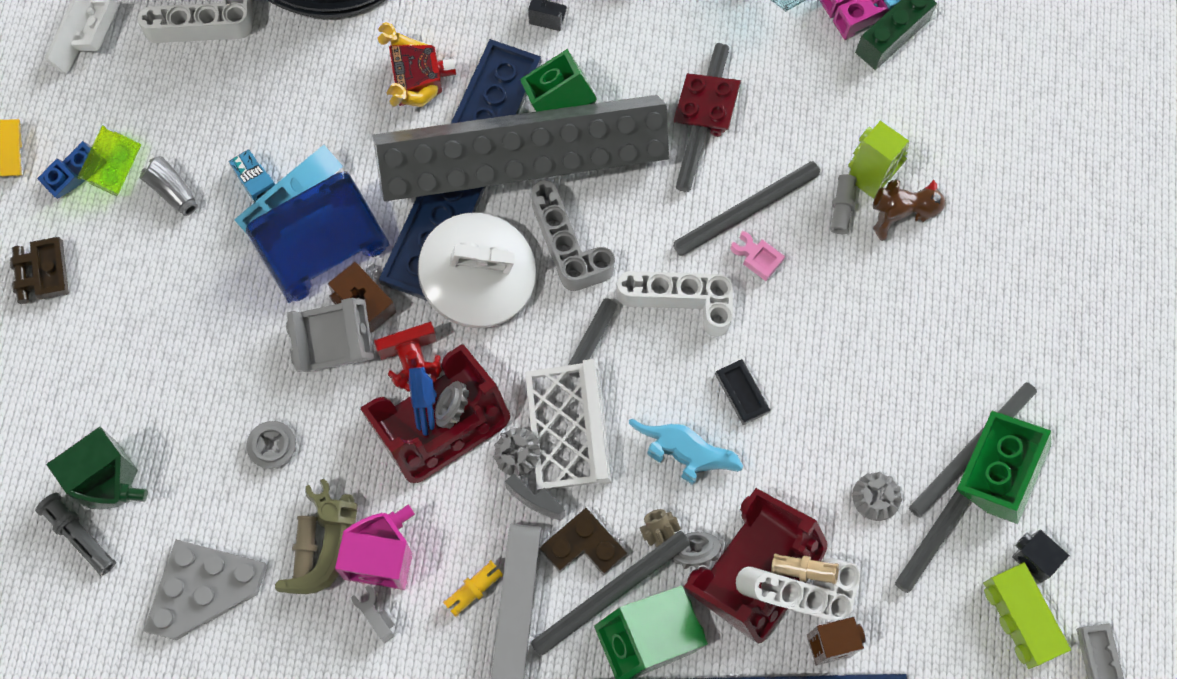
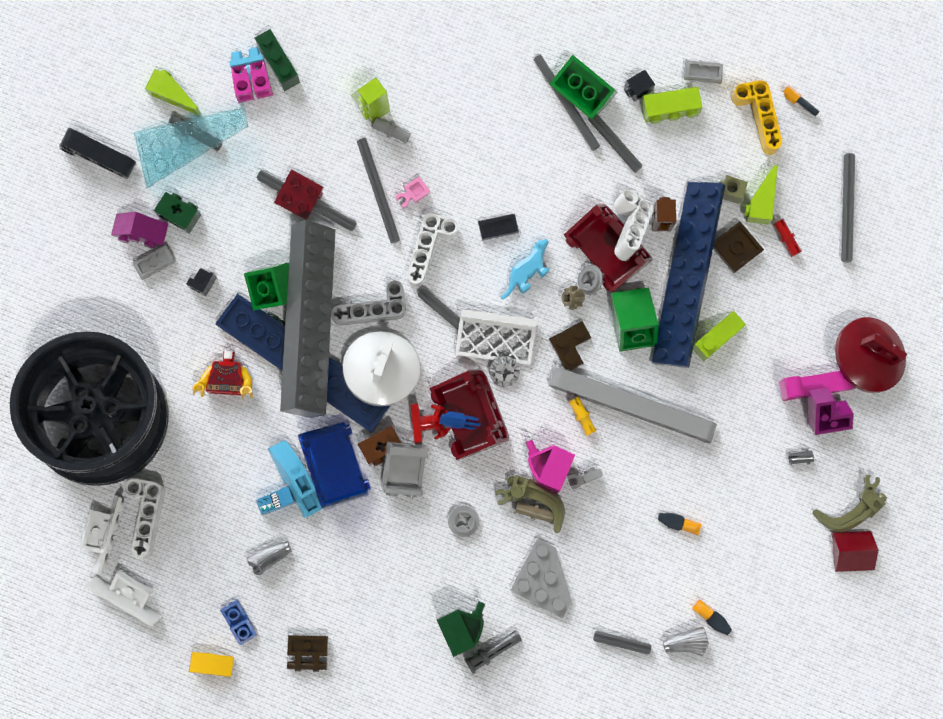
camera: 75 degrees left, 10 degrees up
(109, 161) = (240, 594): clear neon green plate -> none
(451, 404) = (461, 403): light grey gear -> none
(542, 502) = (540, 362): dark grey slope -> none
(610, 593) = (605, 335): dark grey axle -> none
(805, 568) = (621, 219): tan pin -> none
(879, 510) = (581, 175): light grey gear -> none
(899, 203) = (400, 98): reddish brown animal -> none

